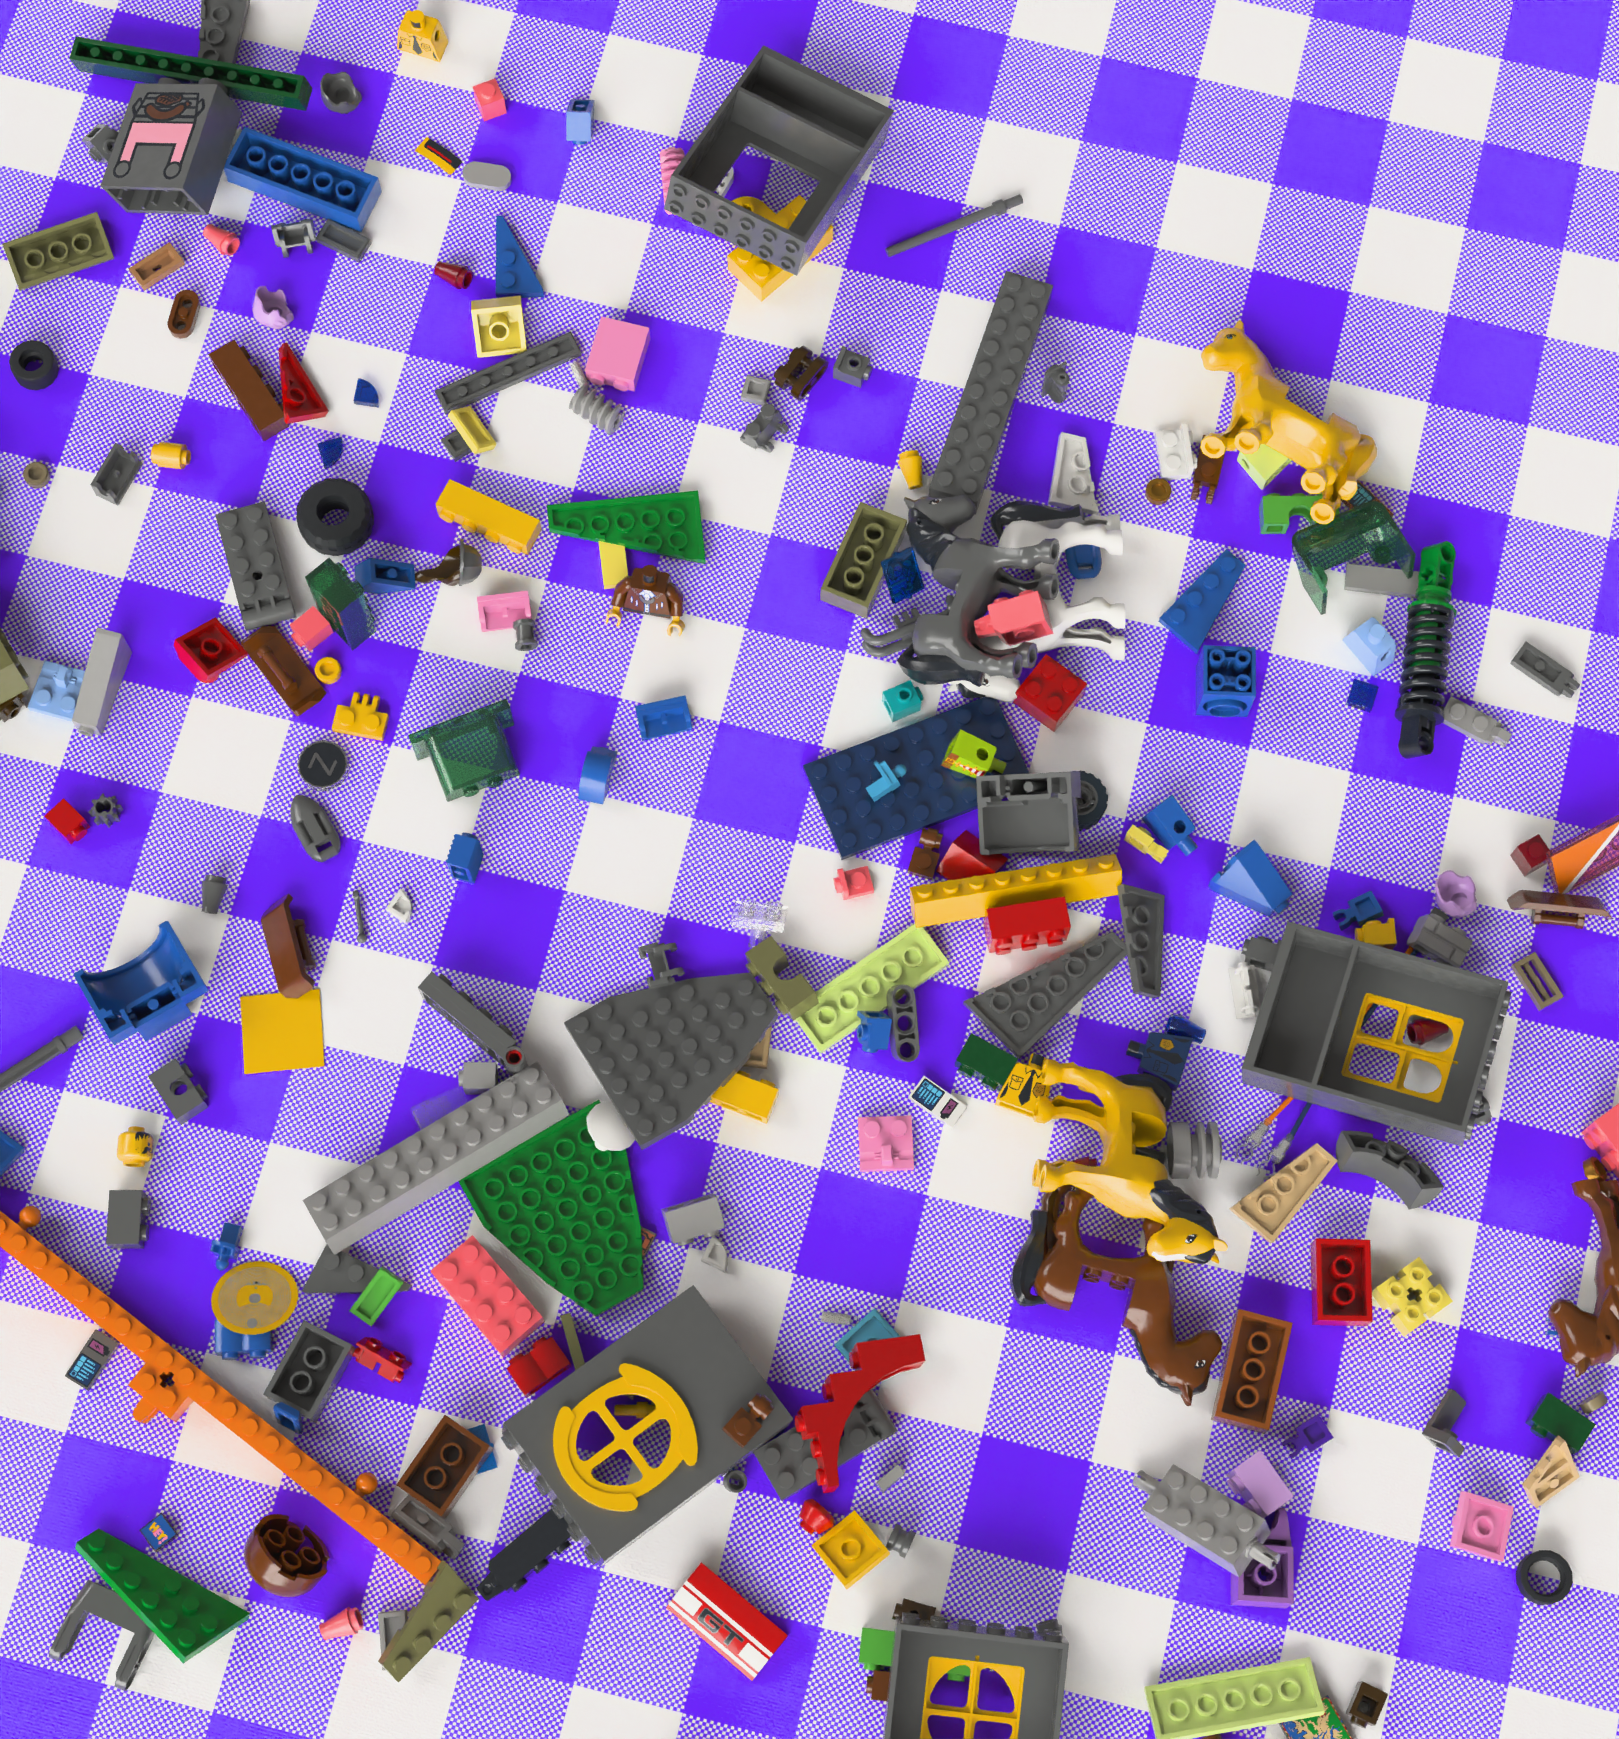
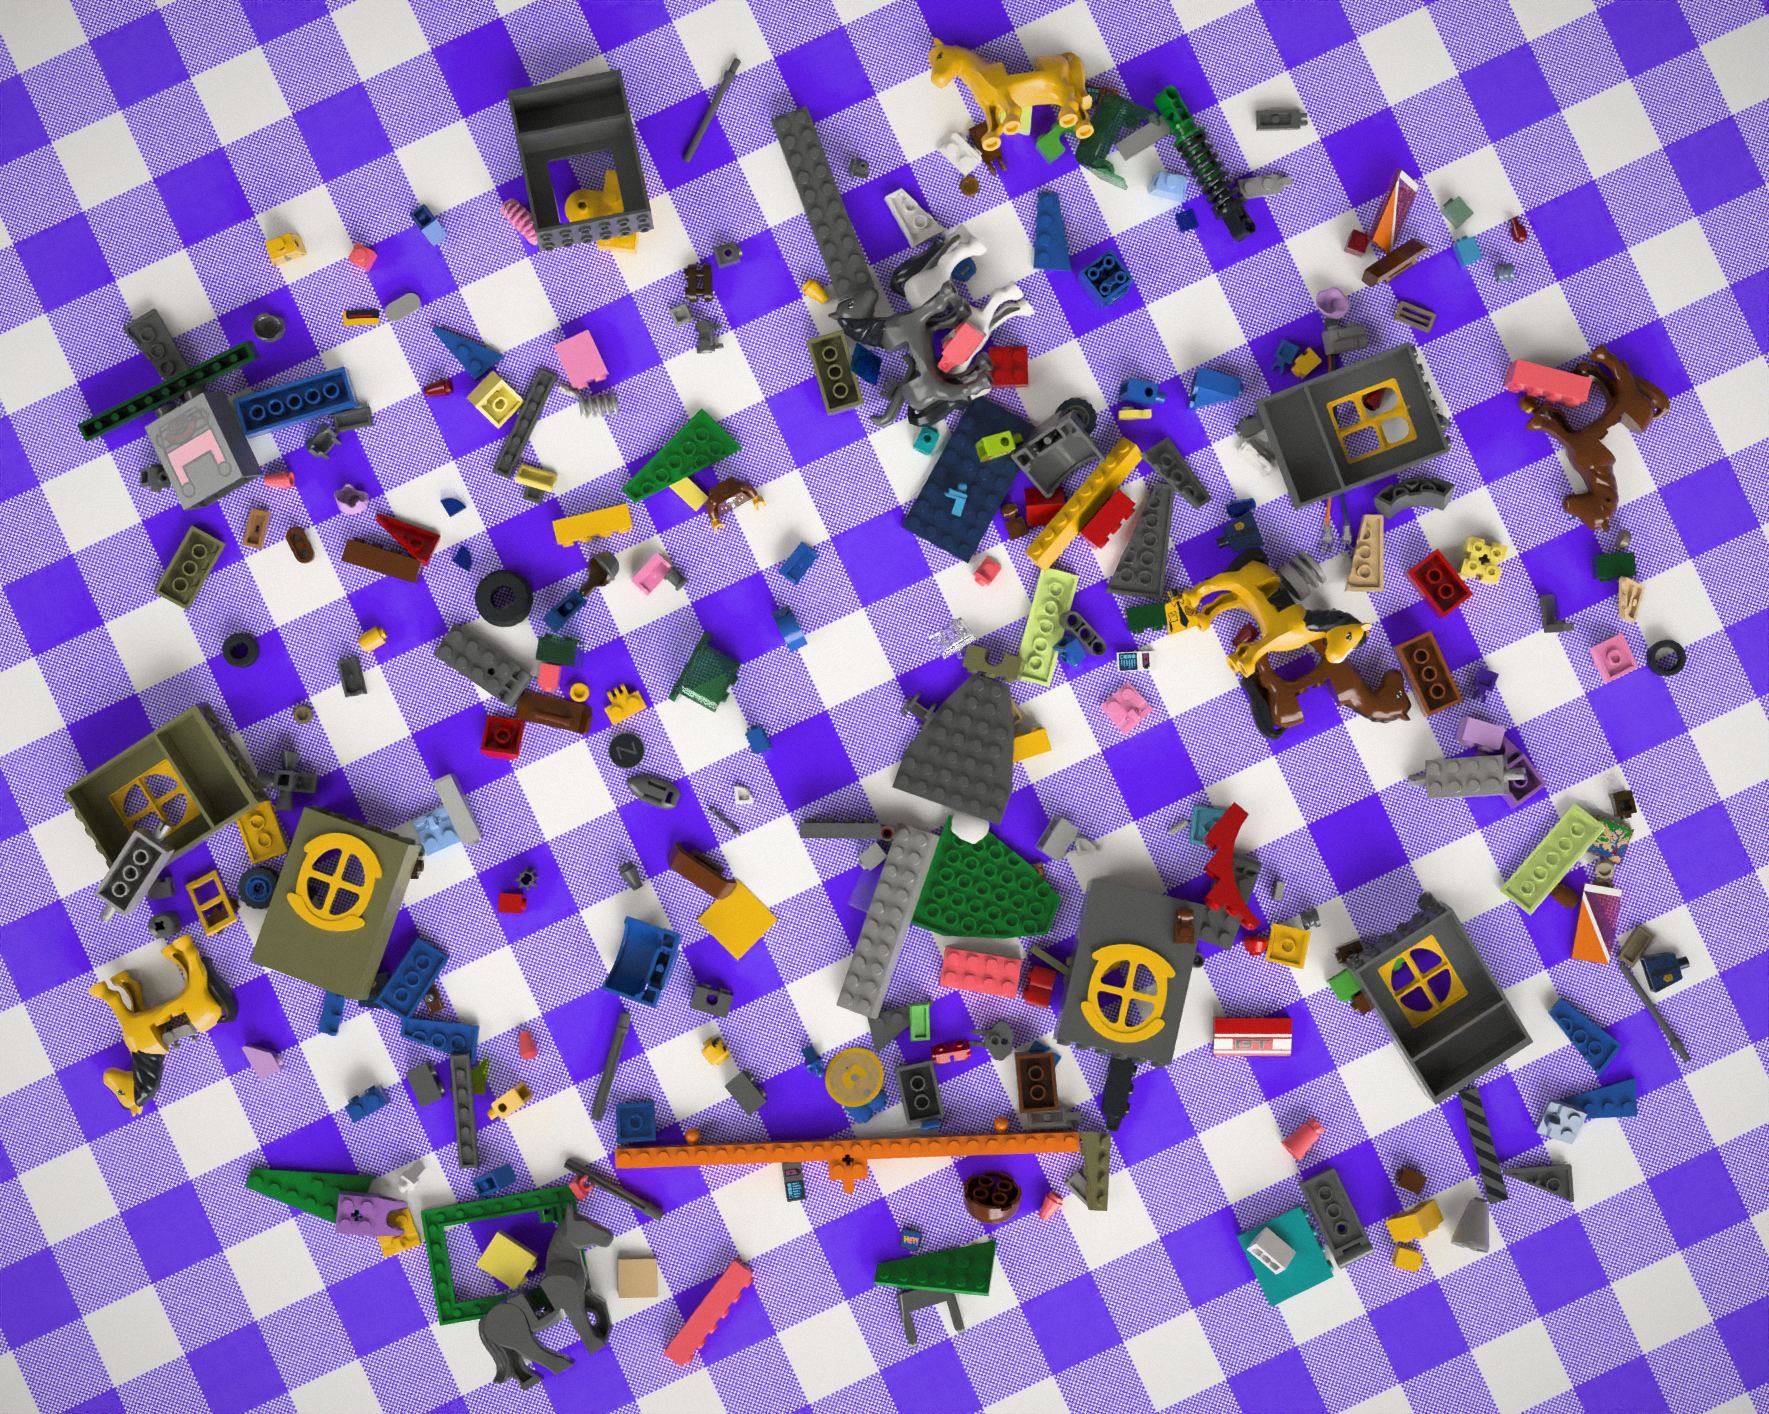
camera: 40 degrees left, 15 degrees up
(438, 1382) = (993, 1039): none -> dark grey hinge

